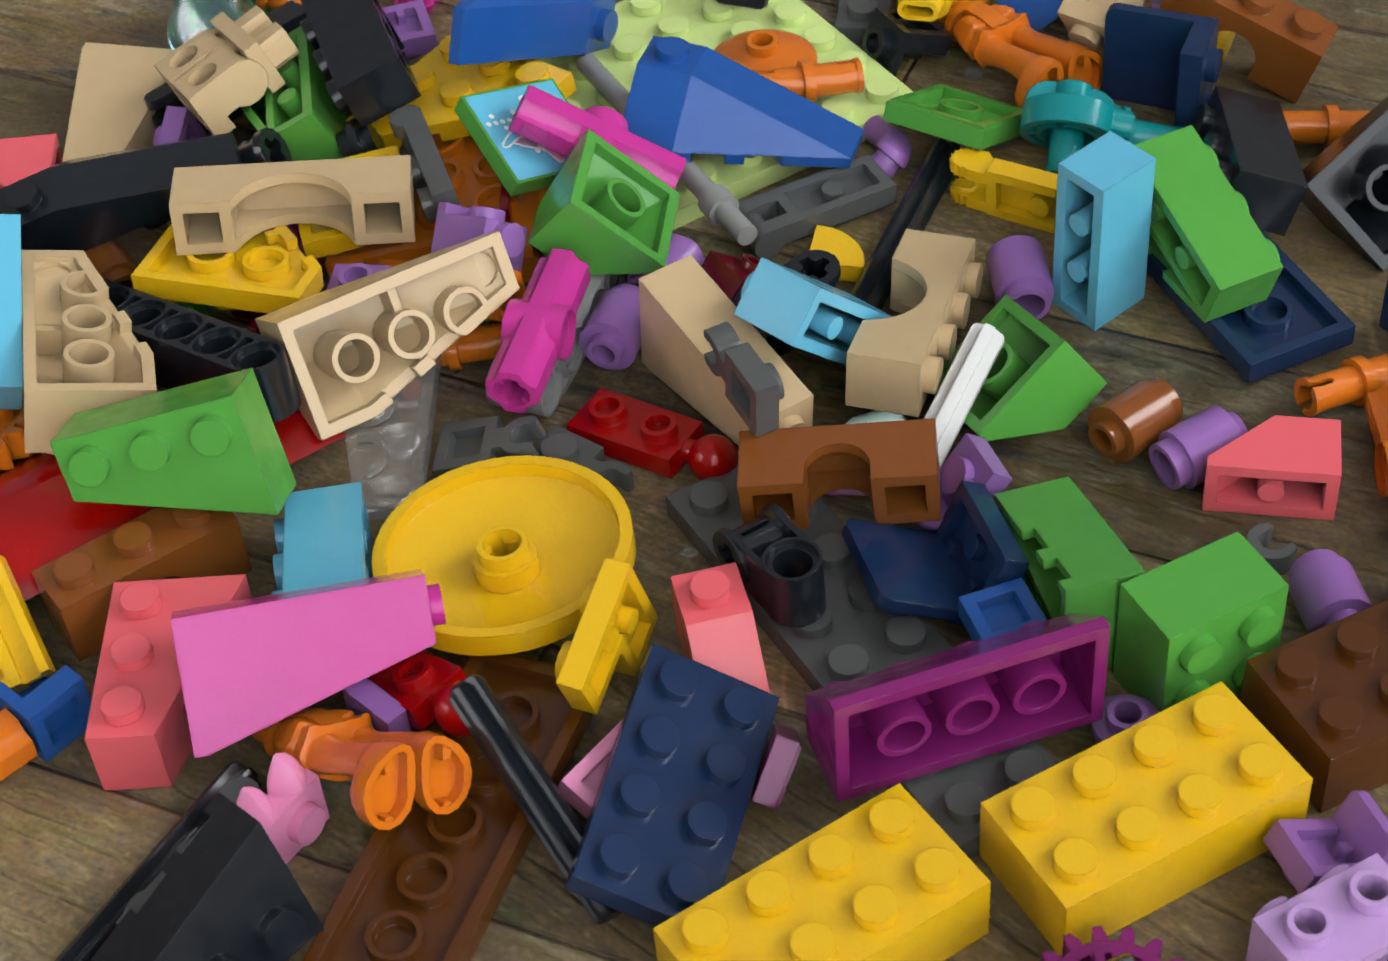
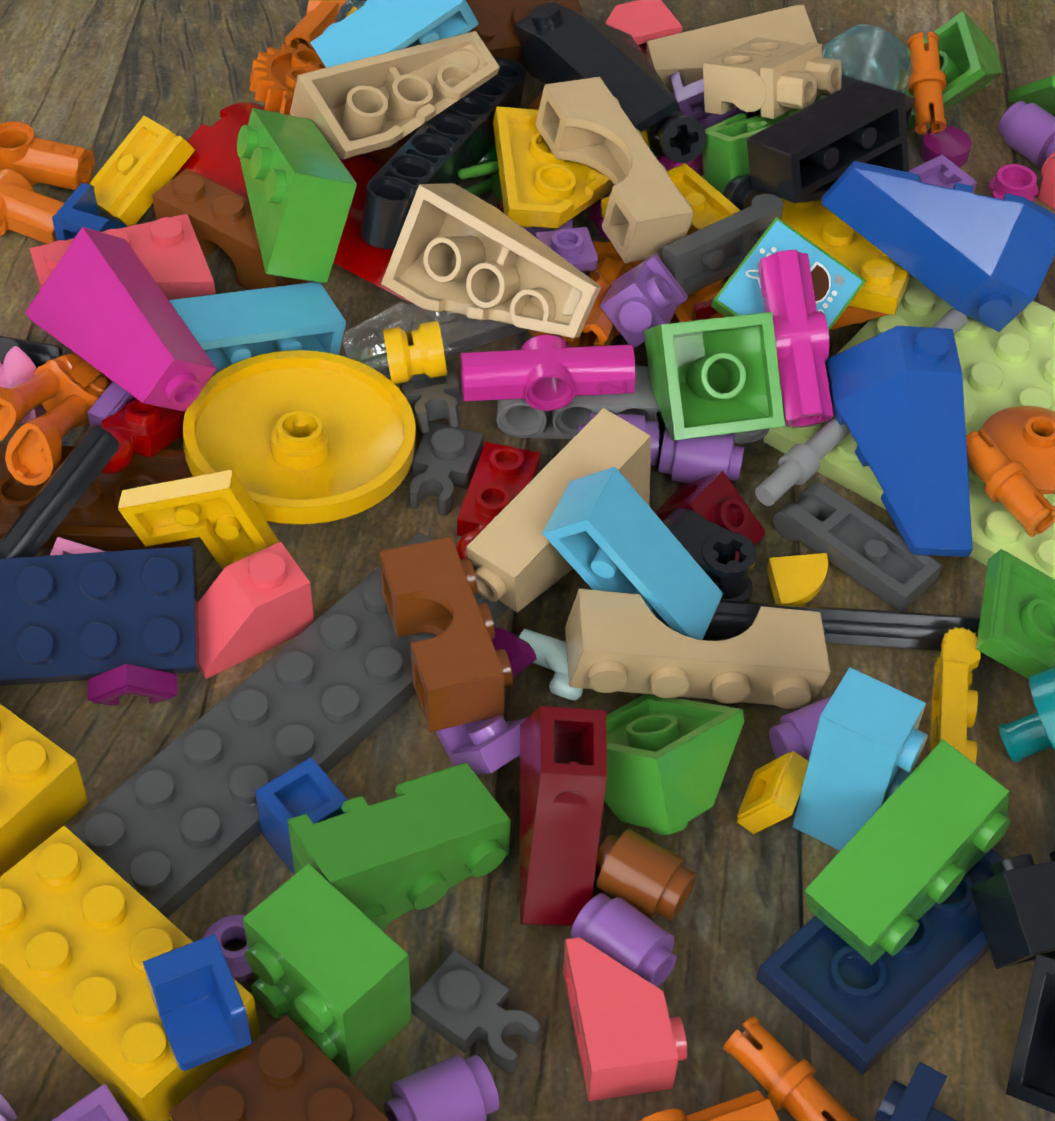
camera: 65 degrees right, 5 degrees up
(445, 429) = (415, 352): none -> yellow wheel
(749, 383) = (479, 512): dark grey plate -> none
(776, 566) = (323, 615): black piece -> none
(892, 145) = (961, 589): medium lavender arm -> none
(929, 570) = (370, 730): dark blue bracket -> none
(959, 704) = (178, 778): magenta slope -> none
(963, 383) = (623, 705): white axle -> none
(1062, 428) = (560, 811): none -> dark red slope
(1077, 315) = (772, 792): none -> yellow tile
(1246, 690) = (198, 1002): none -> blue panel

